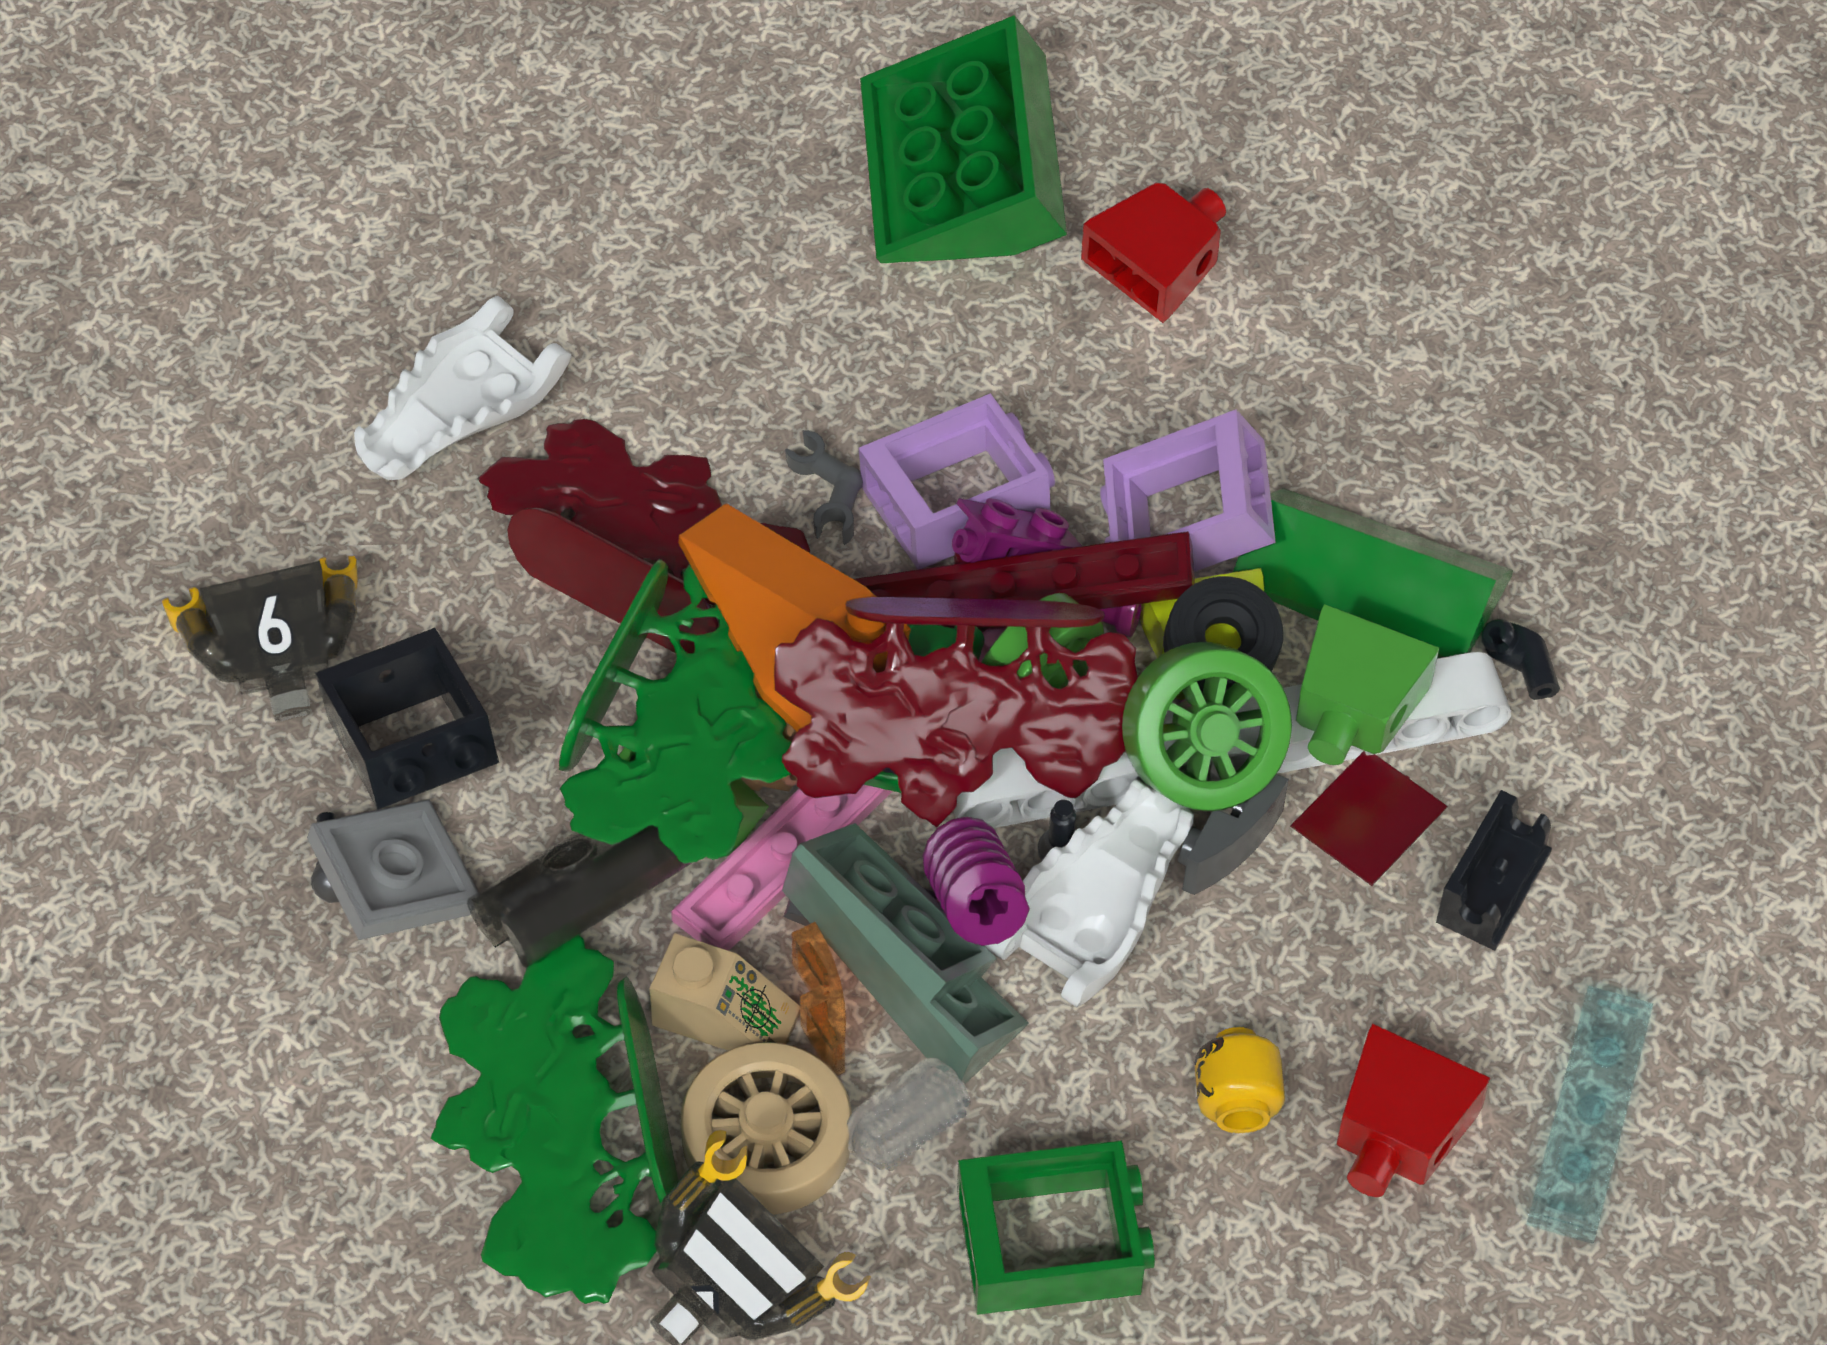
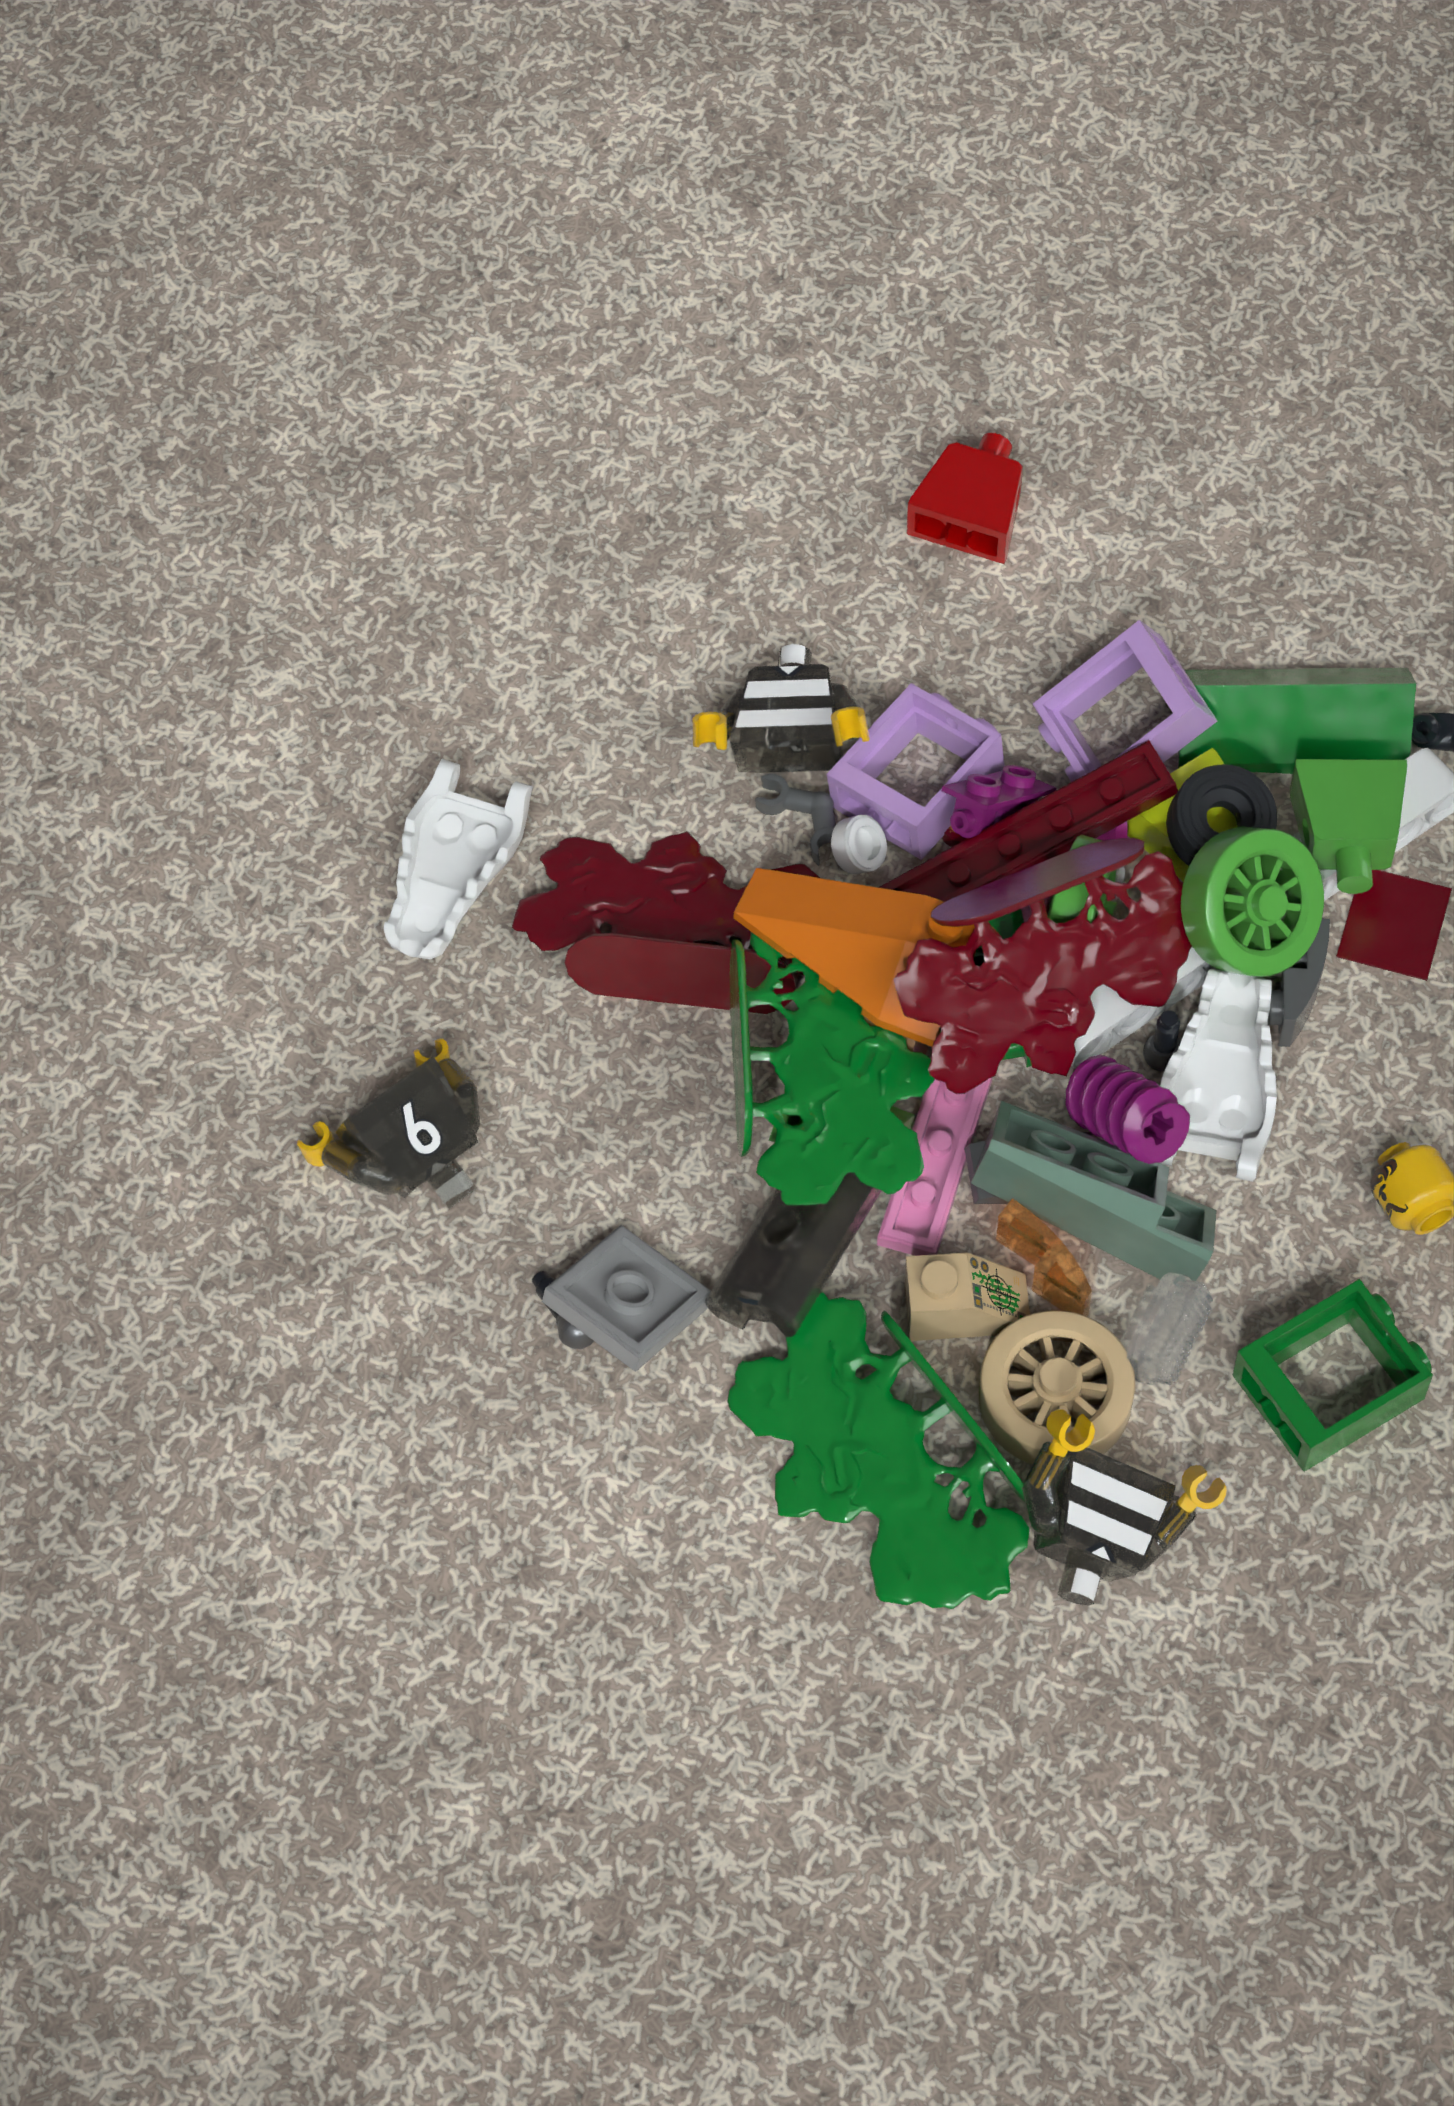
camera: 20 degrees left, 5 degrees up
(419, 672) = (554, 1116): black window -> none
(850, 382) = (785, 717): none -> torso
(861, 530) = (858, 844): none -> white tile
(963, 150) = (762, 476): green slope -> none

